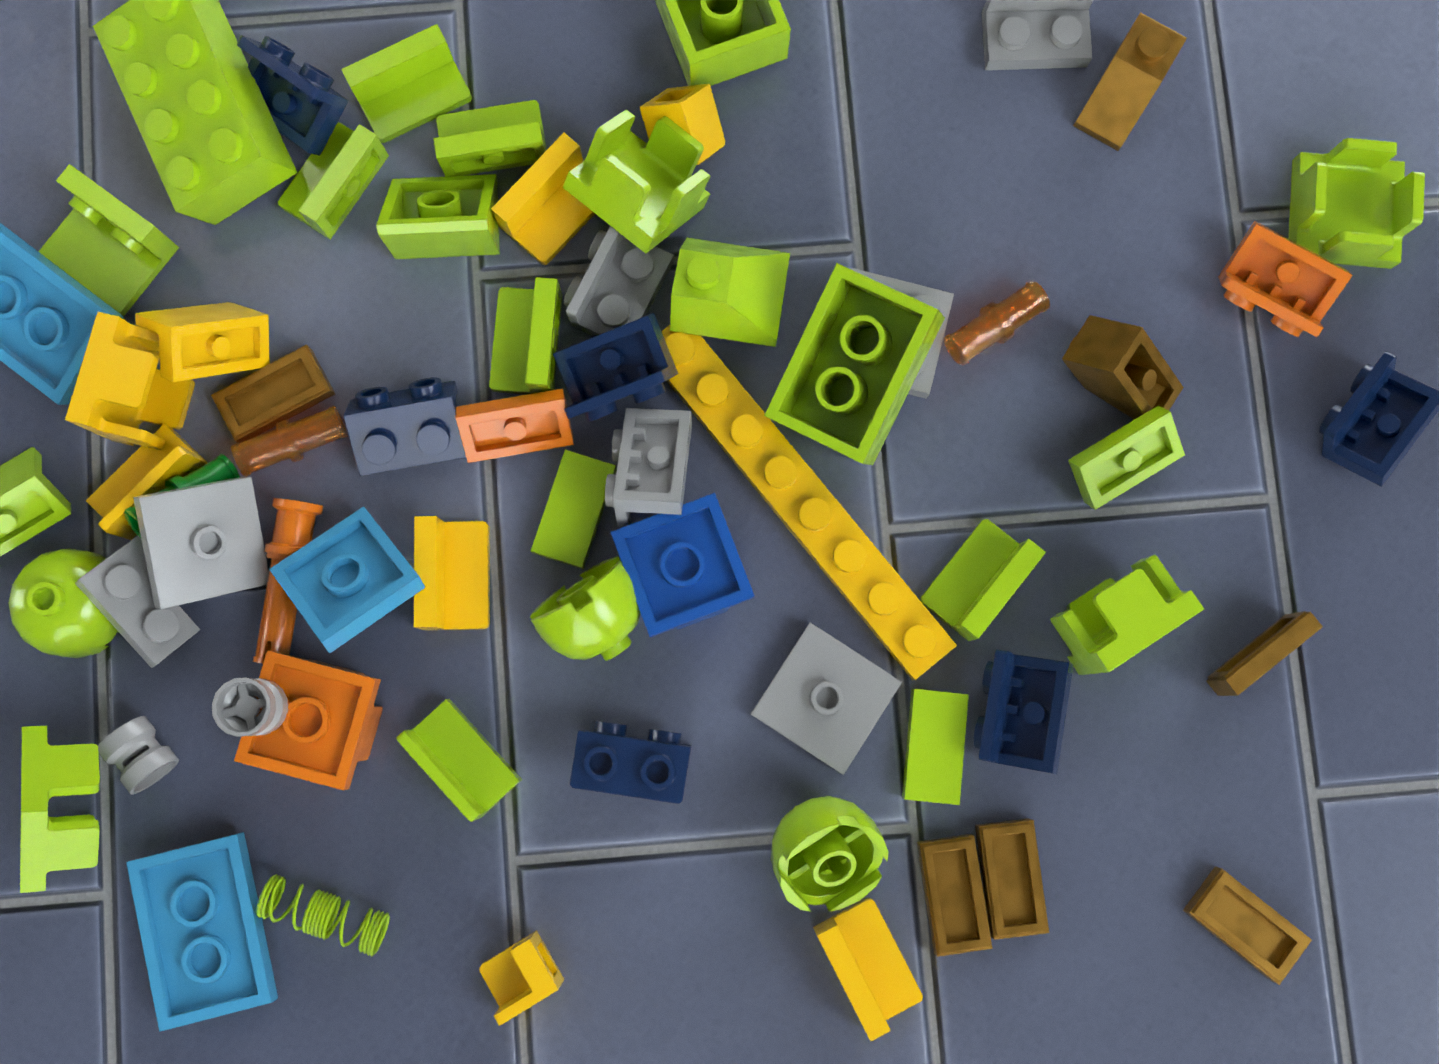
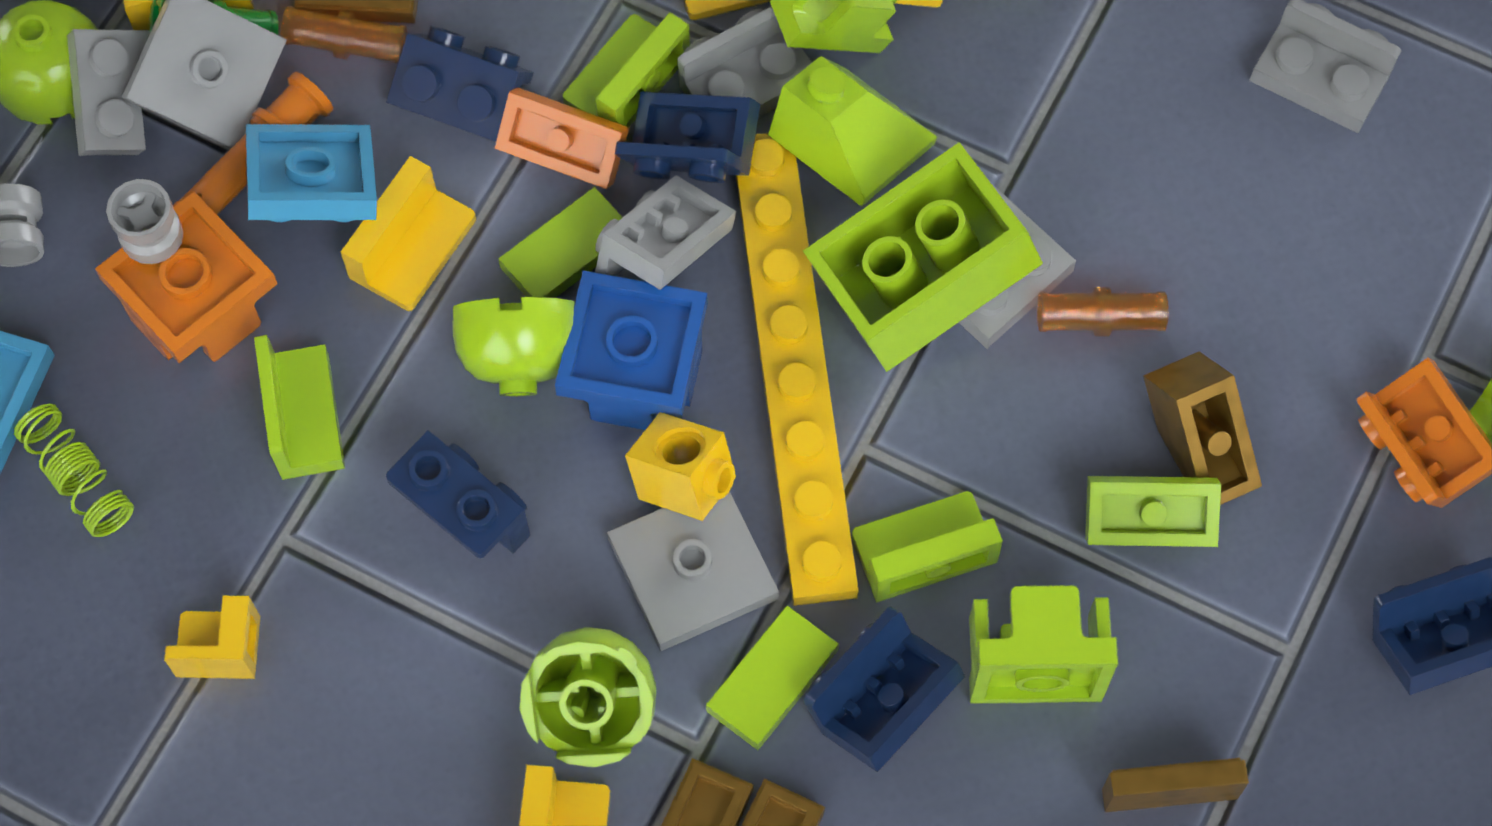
camera: 35 degrees right, 15 degrees down
(761, 621) = (681, 466): none -> yellow brick
(1130, 81) = (1386, 161): pearl gold slope -> none

